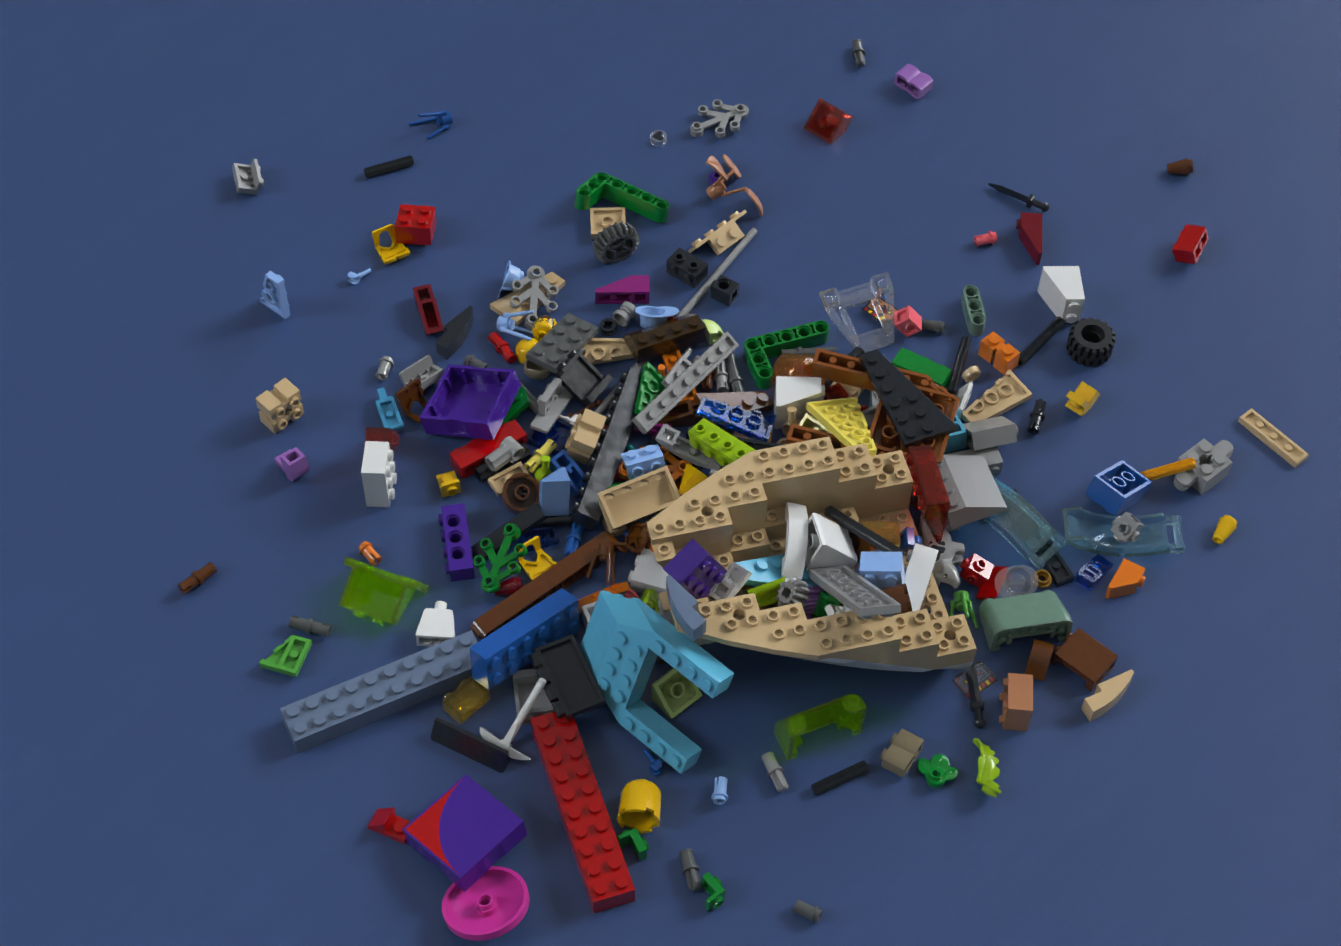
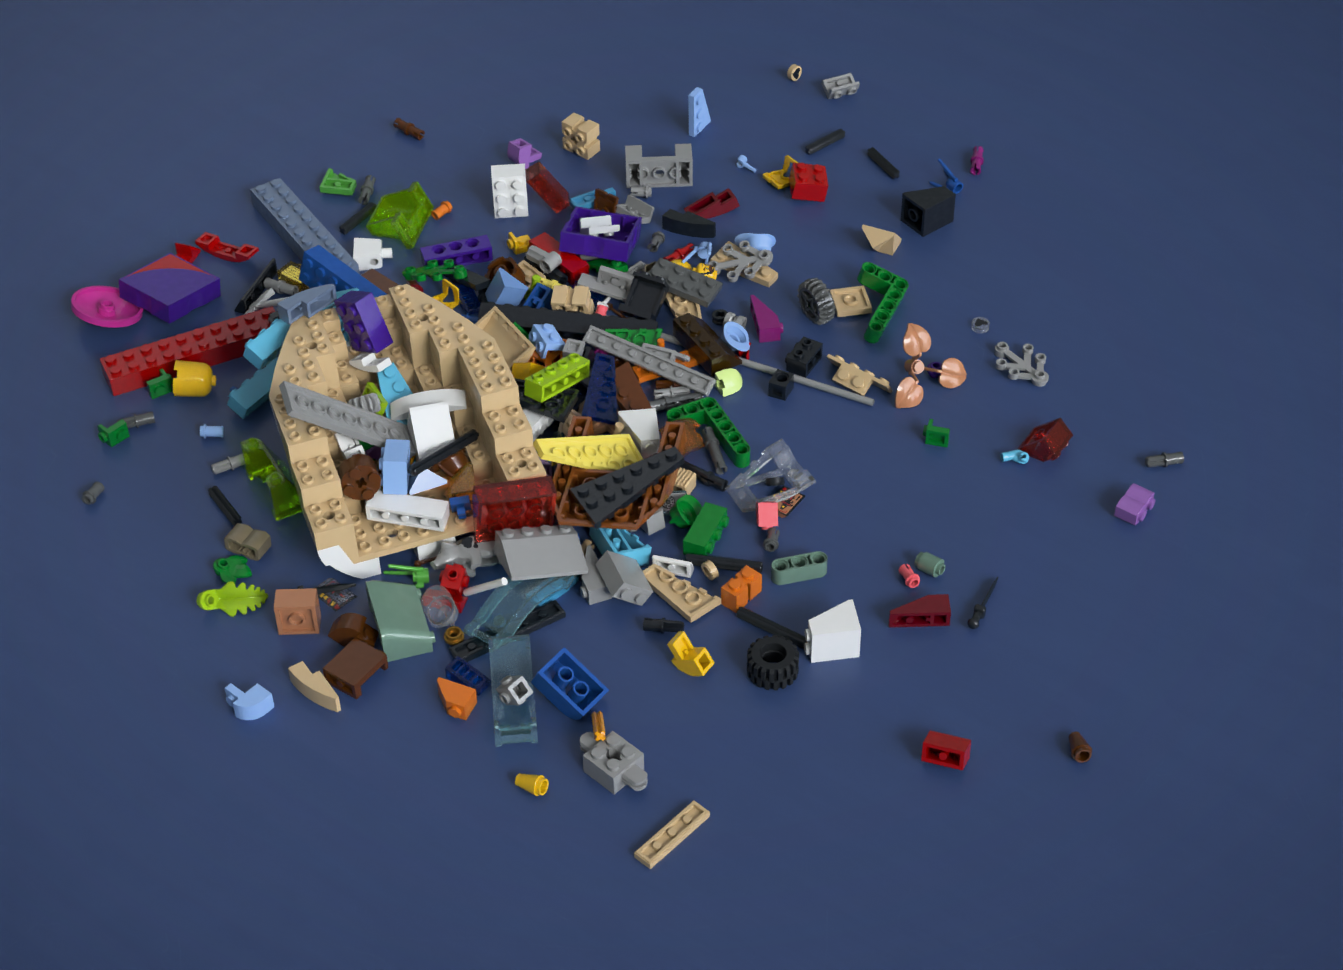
camera: 85 degrees right, 10 degrees down
(207, 211) = (794, 72): none -> tan tile
(338, 206) = (825, 141): none -> black axle
(354, 362) = (676, 169): none -> light grey plate
(360, 638) = (357, 218): none -> black axle
(392, 776) = (225, 251): none -> red slope
(407, 95) = (977, 160): none -> magenta pin
(459, 402) = (596, 225): none -> bracket
(477, 718) = (281, 286): none -> light grey pin
(493, 139) = (928, 209): none -> black slope
(520, 183) = (882, 240): none -> tan slope
(809, 193) = (936, 435): none -> green bracket
(841, 144) = (1015, 455): none -> medium azure arm
(858, 313) = (776, 481): none -> black tile
(974, 222) = (930, 564): none -> sand green brick
(996, 537) = (485, 586): none -> white bar
(1129, 749) = (249, 705): none -> light blue brick

